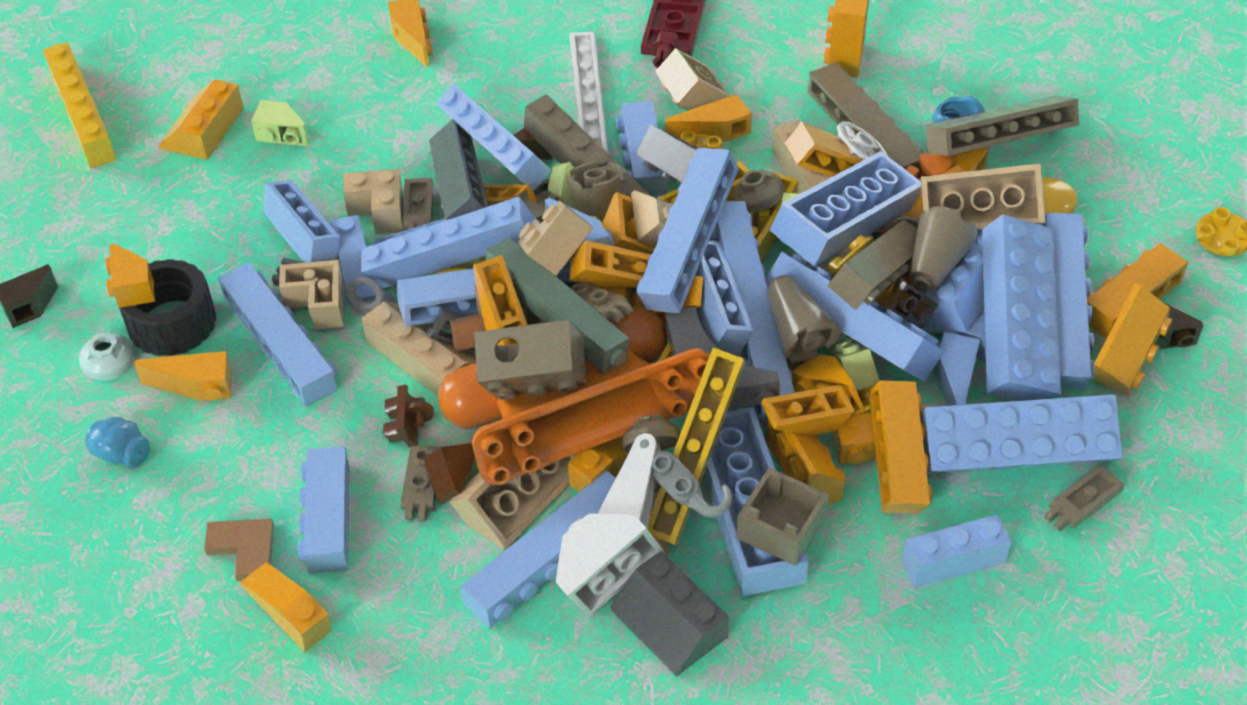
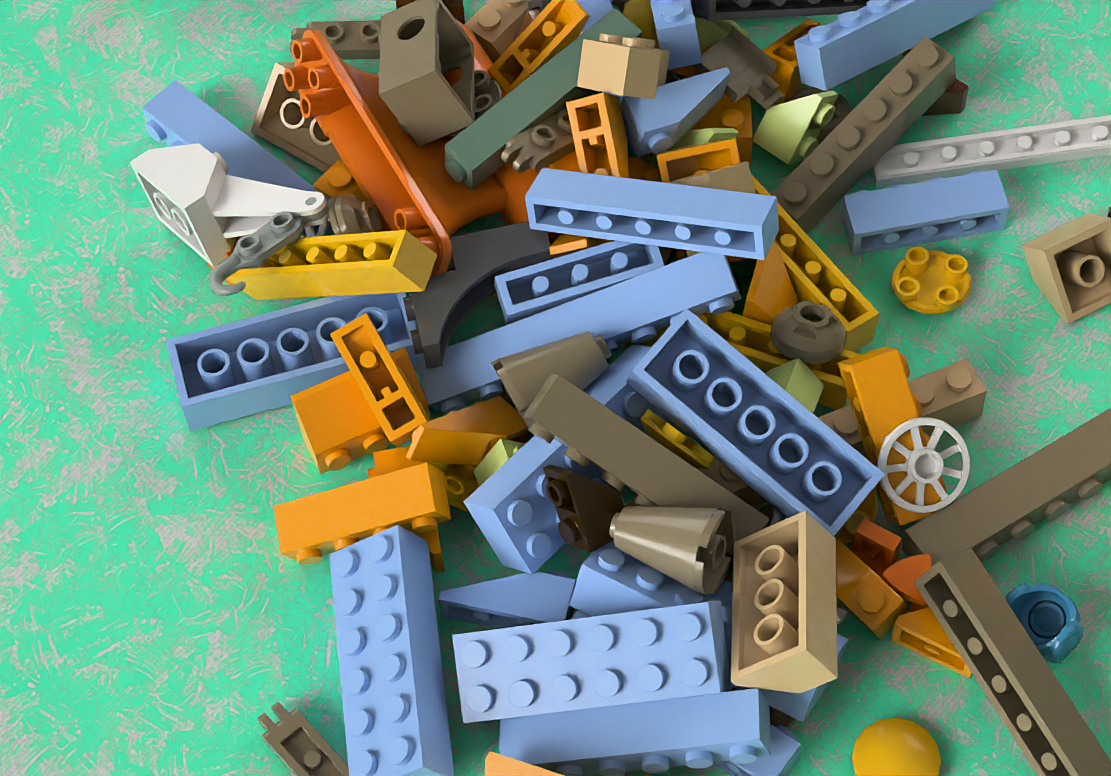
camera: 90 degrees right, 10 degrees up
(449, 469) = (355, 51): reddish brown slope -> none
(595, 186) = (779, 137): dark tan cone -> none
(667, 153) = (855, 240): slope -> none
(670, 614) = (148, 293): dark grey slope -> none
(725, 118) = (998, 301): light orange slope -> none
(782, 516) = (227, 365): dark tan container -> none
(955, 551) = (218, 589): light blue brick -> none

